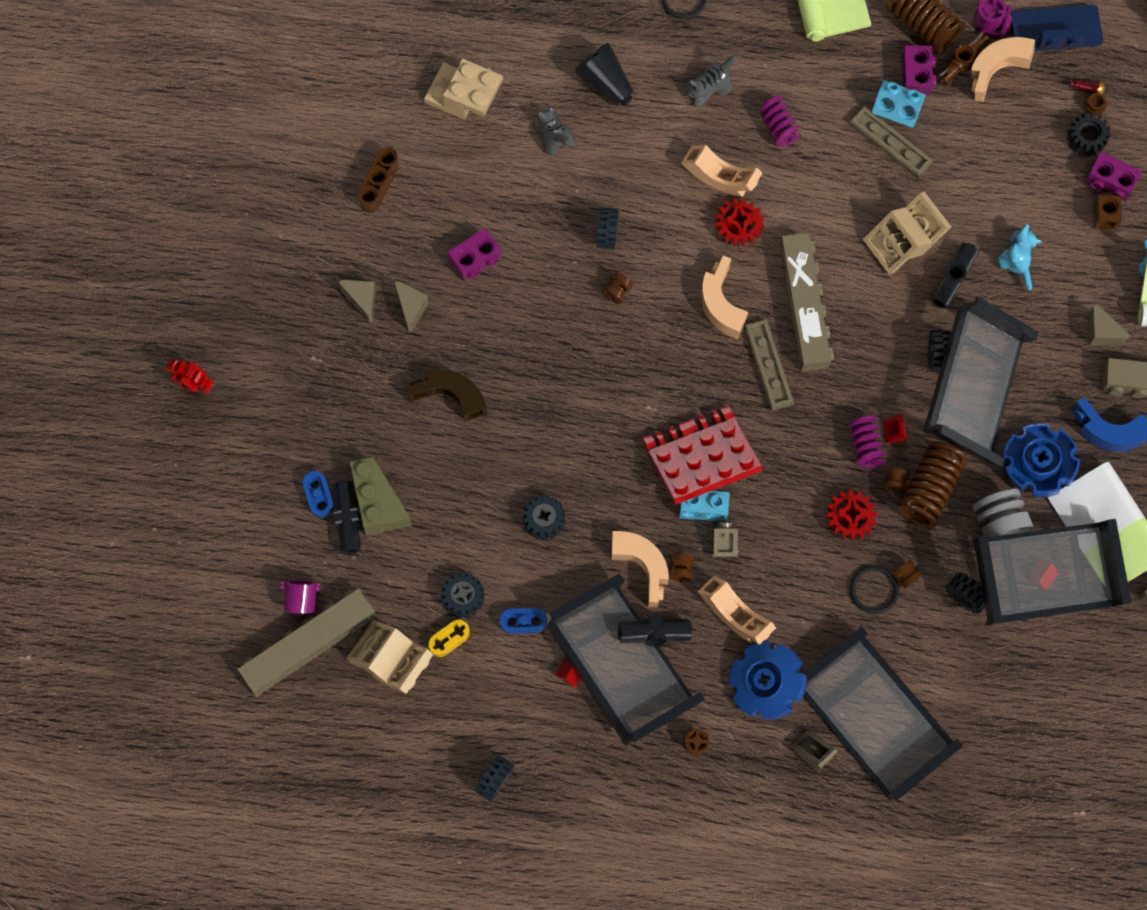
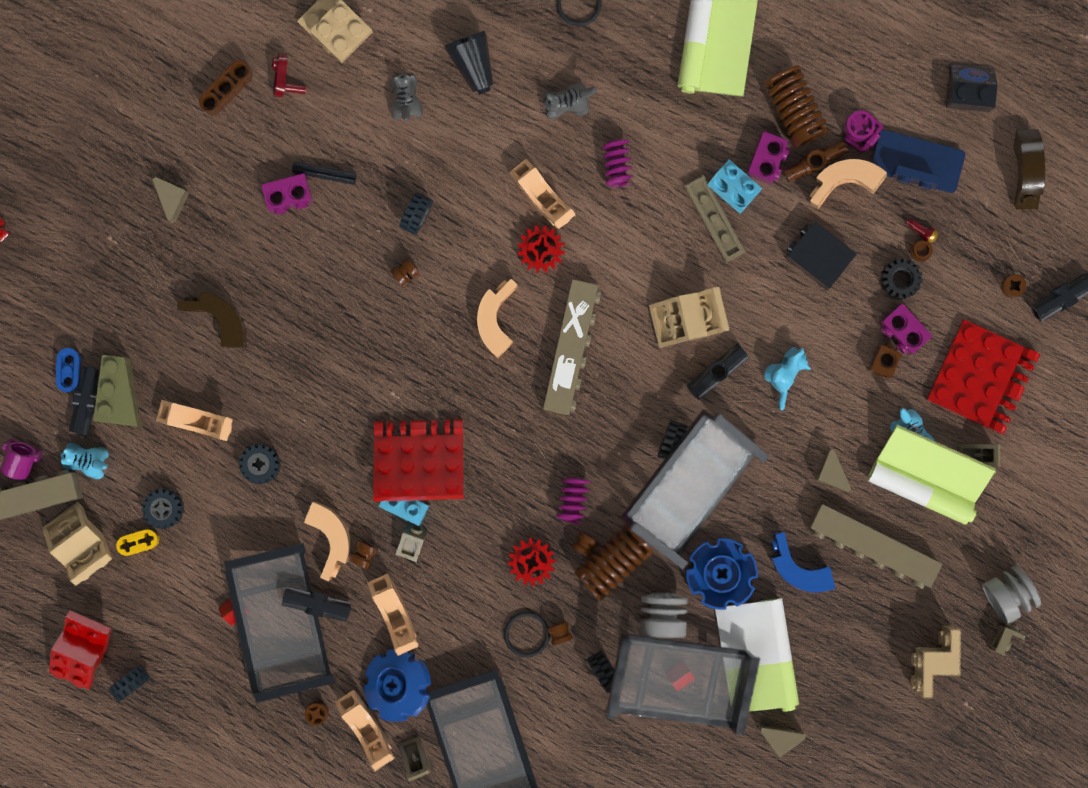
camera: 25 degrees right, 15 degrees up
(371, 575) = (86, 460): none -> medium azure animal
(412, 303) = (212, 221): dark tan slope -> none
(430, 160) = (280, 86): none -> dark red piece
(431, 762) = (79, 650): none -> red bracket
(467, 496) = (194, 420): none -> light nougat arch
(504, 225) = (324, 172): none -> black axle
(523, 620) = (207, 551): blue plate -> none
(751, 737) = (366, 728): none -> light nougat arch
(769, 365) = (515, 393): dark tan tile -> none
(895, 429) = (604, 496): red slope -> none
(1004, 138) = (820, 255): none -> black brick

